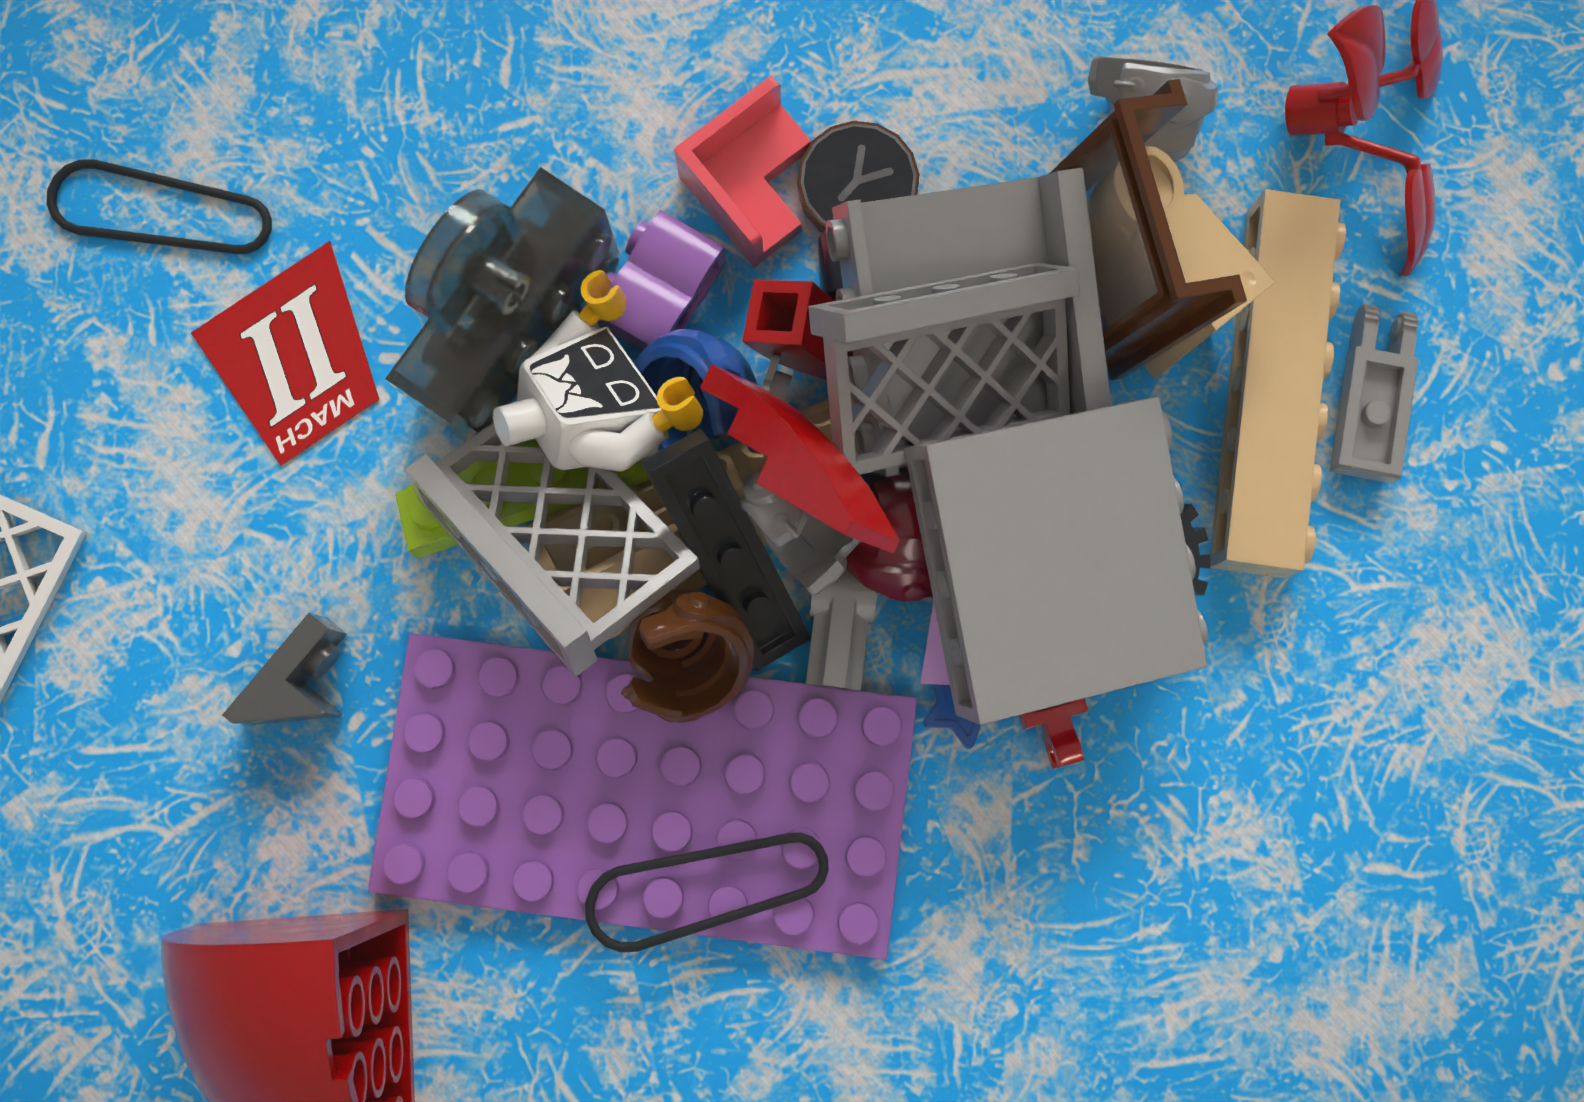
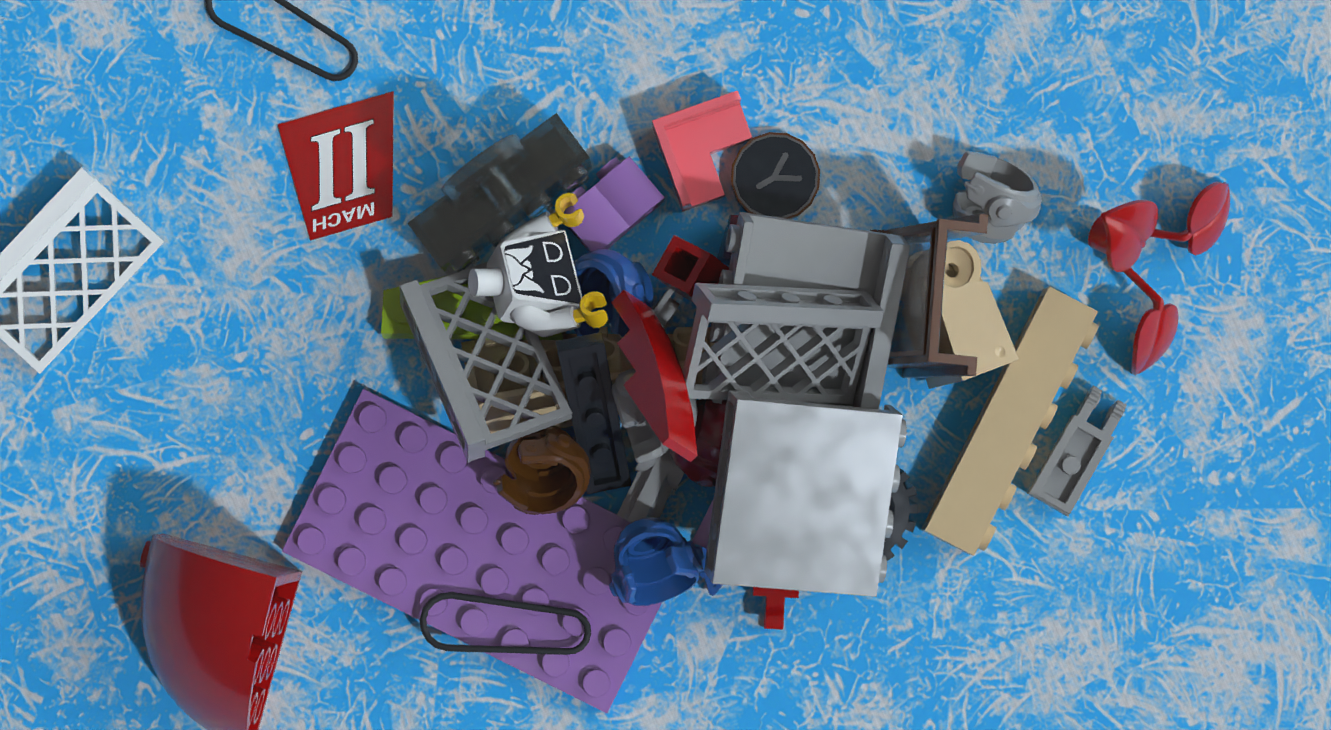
camera: 20 degrees right, 5 degrees up
(280, 686) = (265, 398): dark grey slope -> none
(881, 728) = (653, 563): none -> blue helmet

